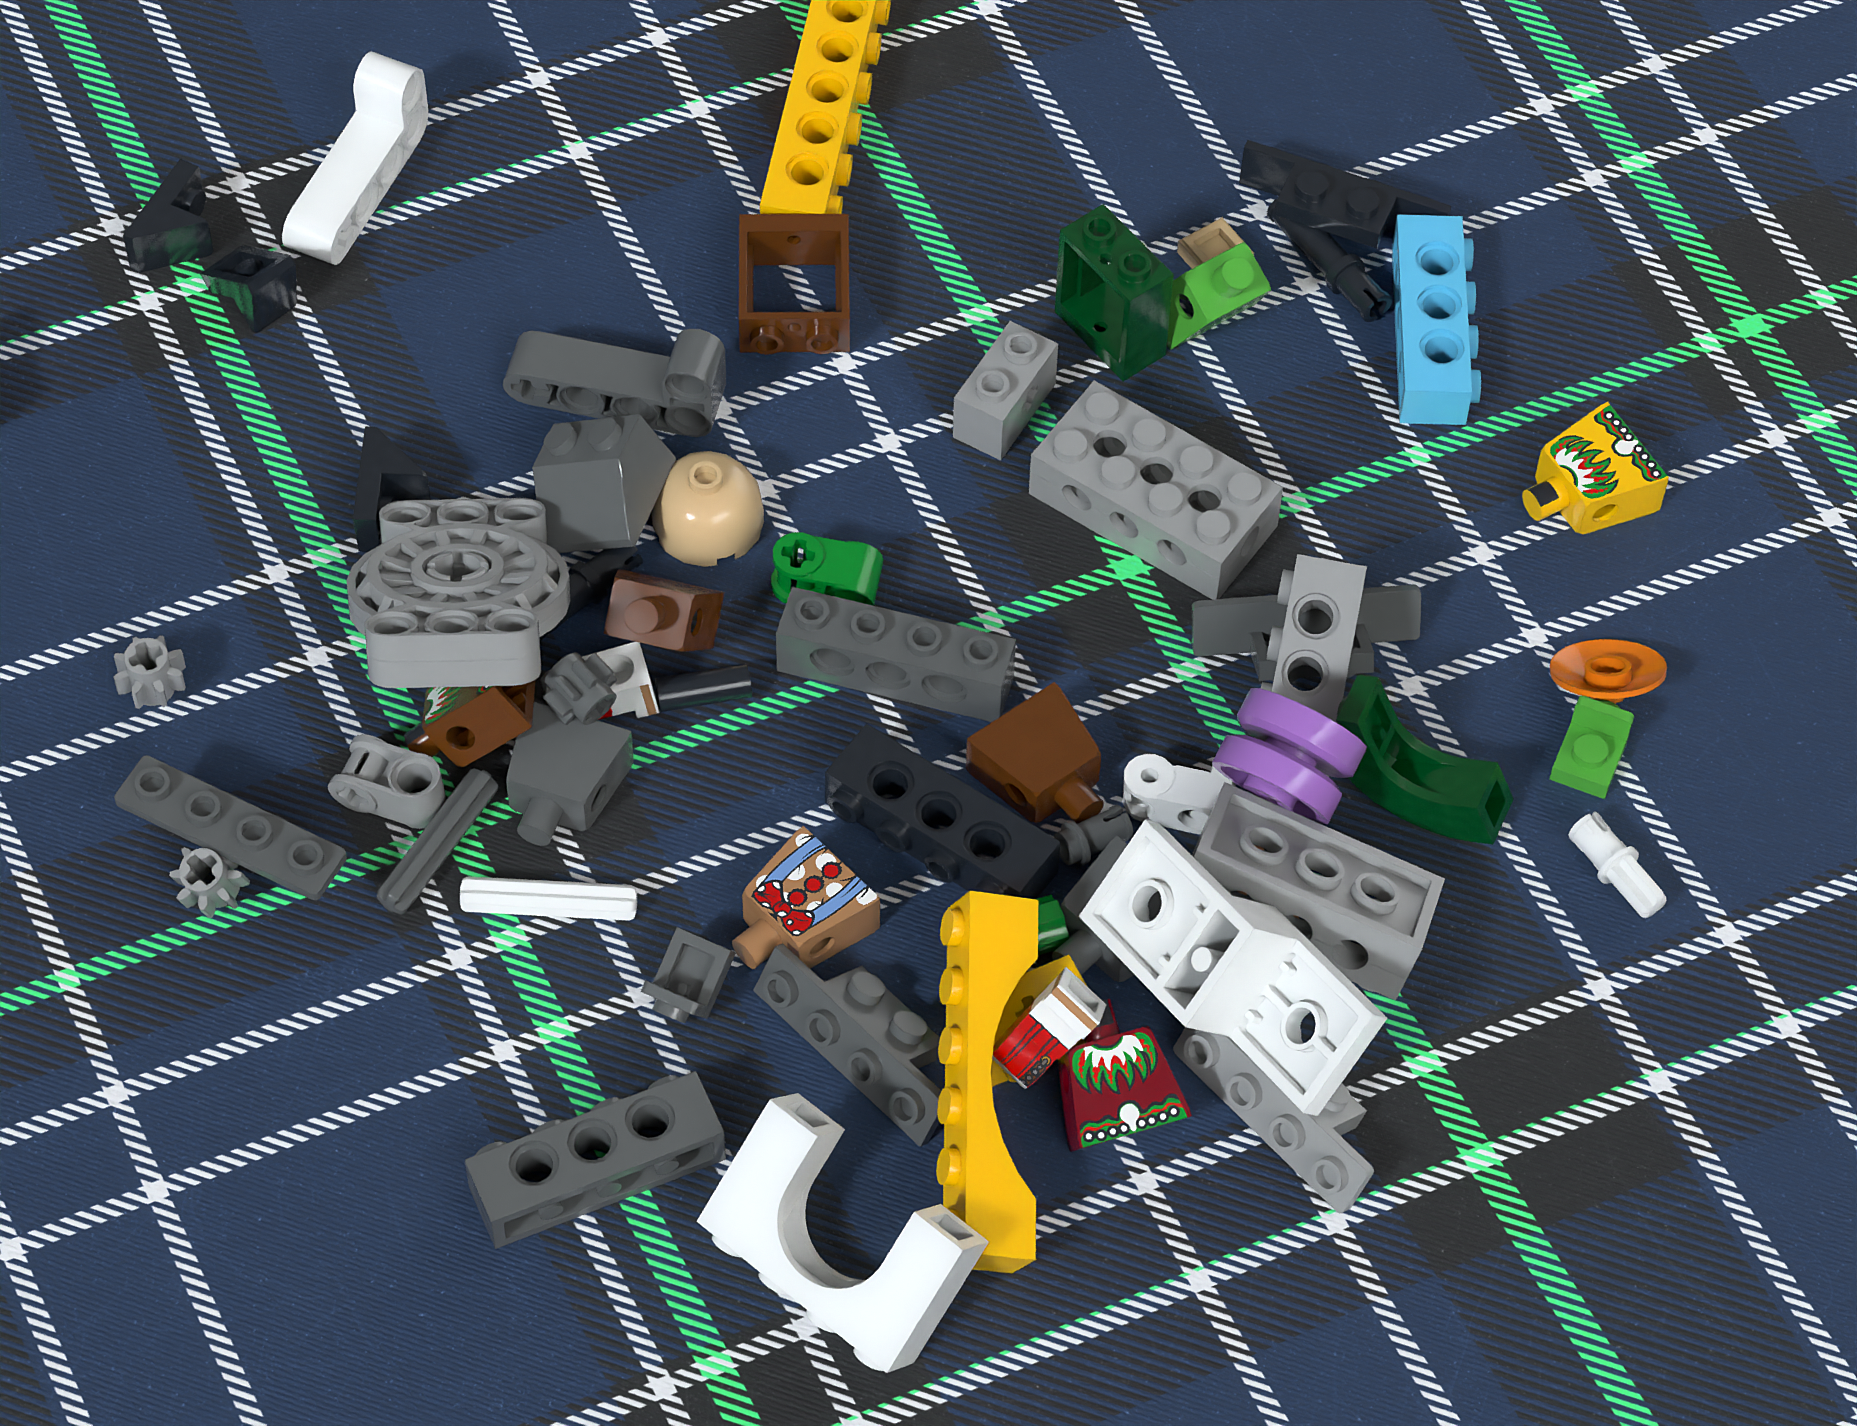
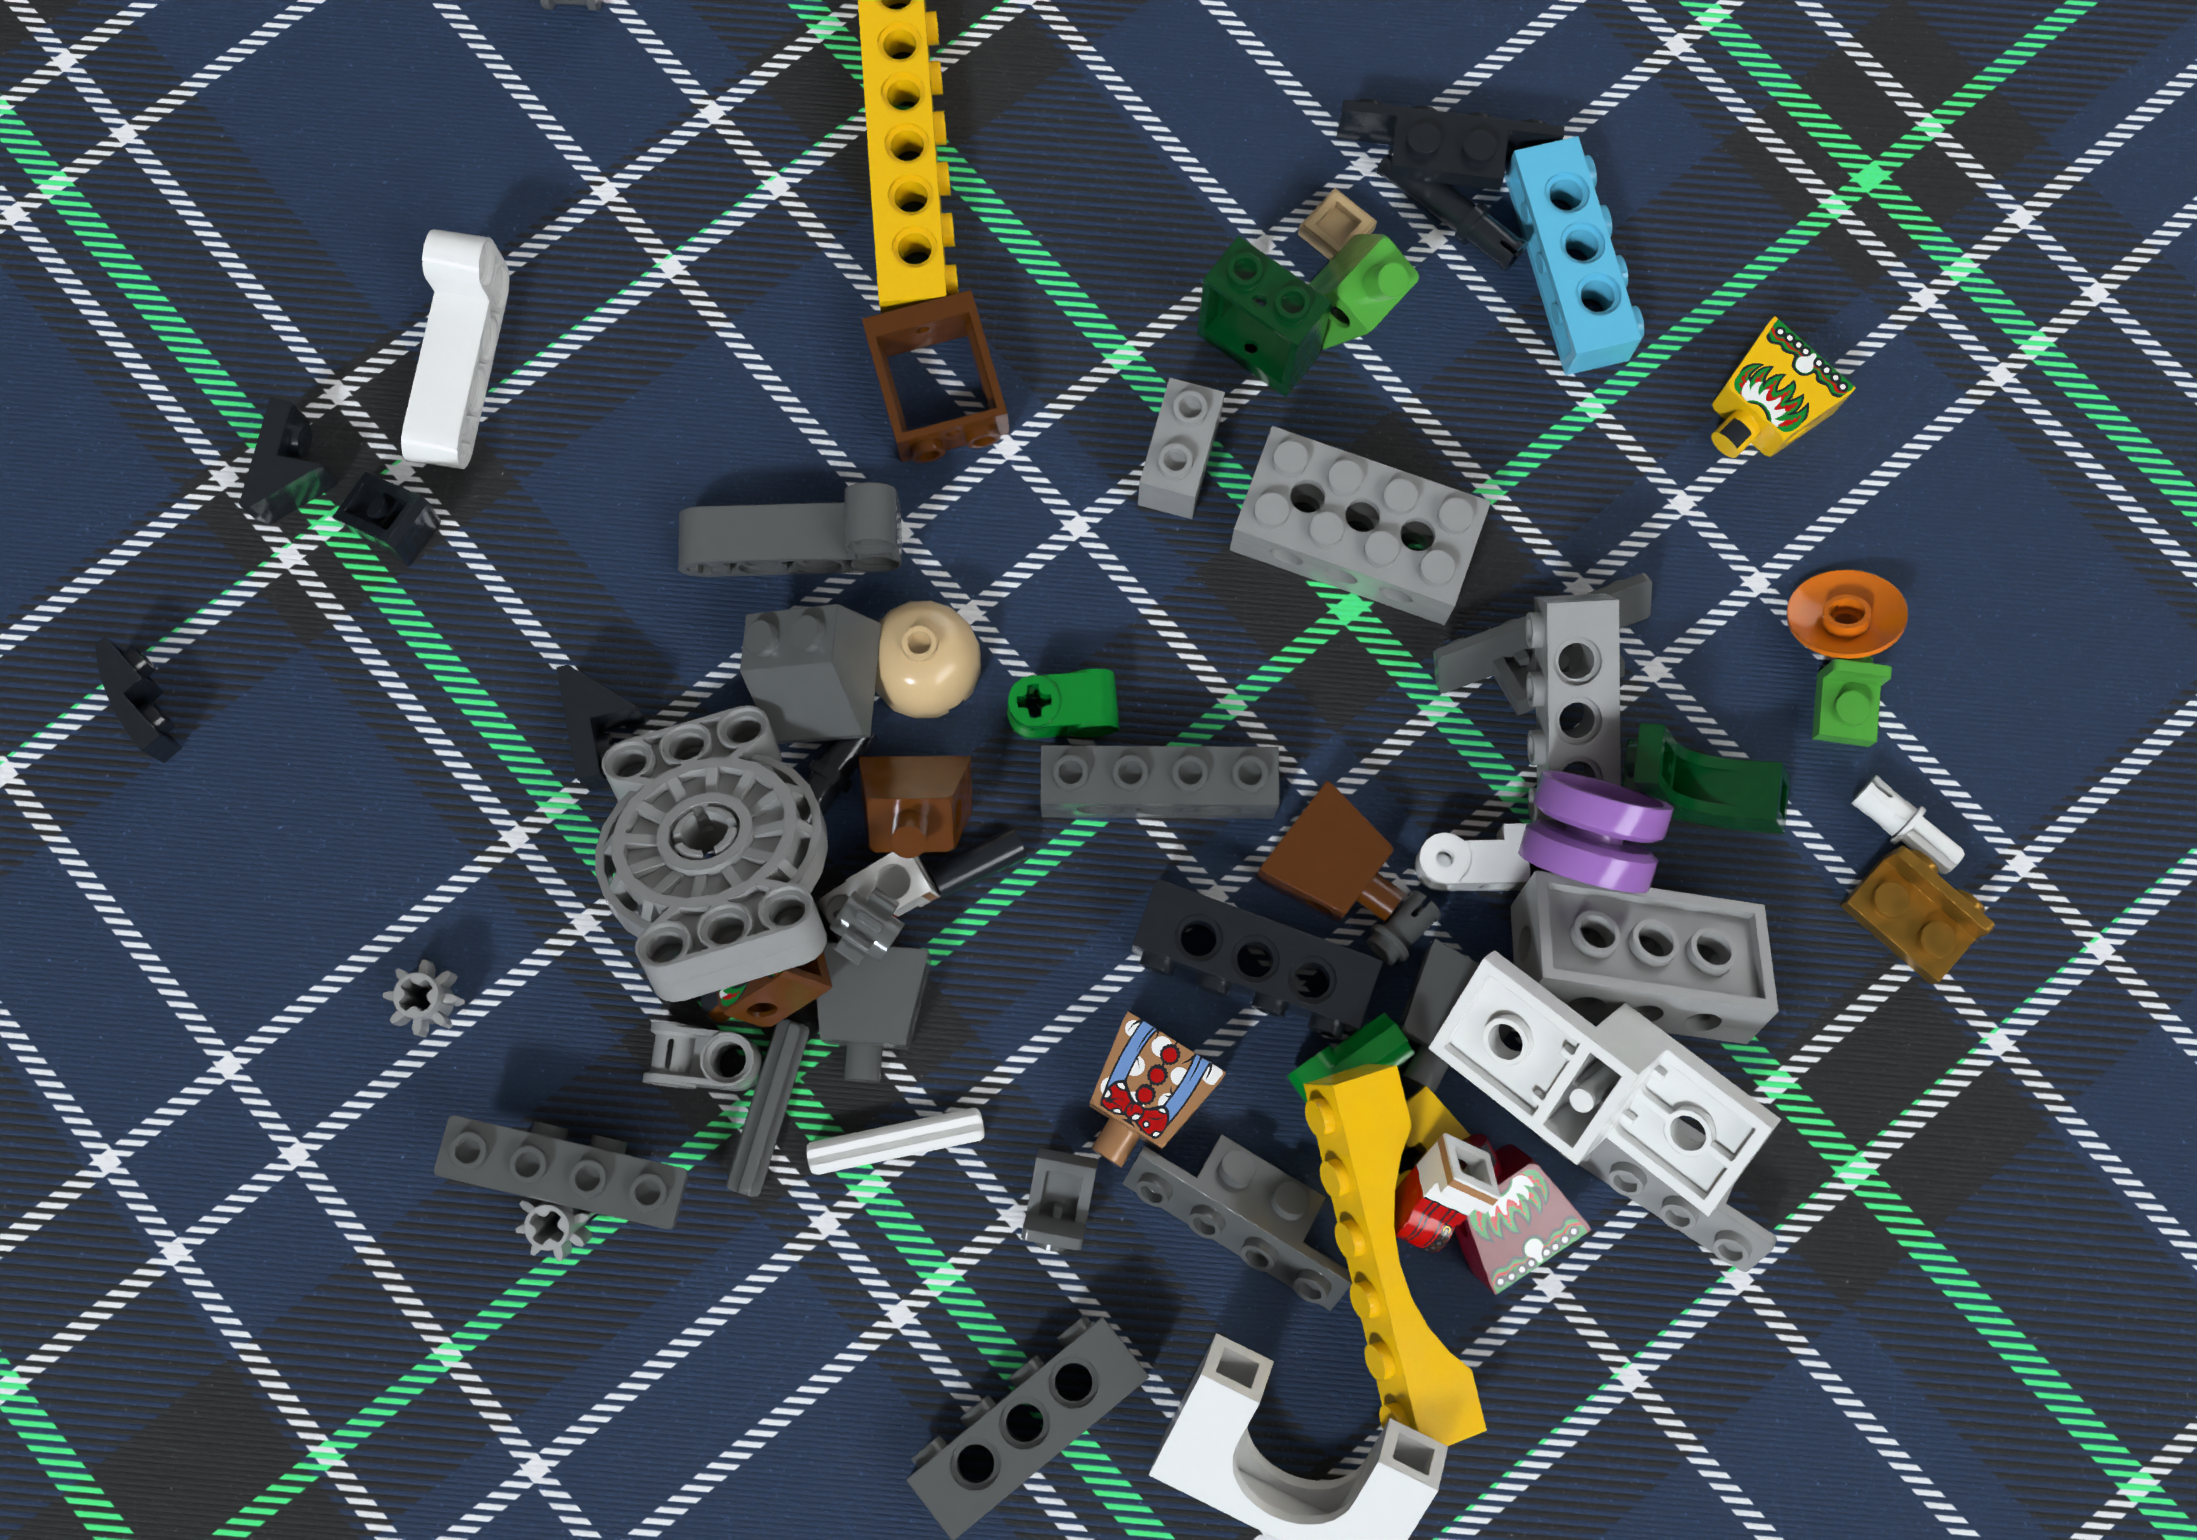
camera: 15 degrees left, 20 degrees up
(1605, 942) = (1917, 912): none -> pearl gold bracket

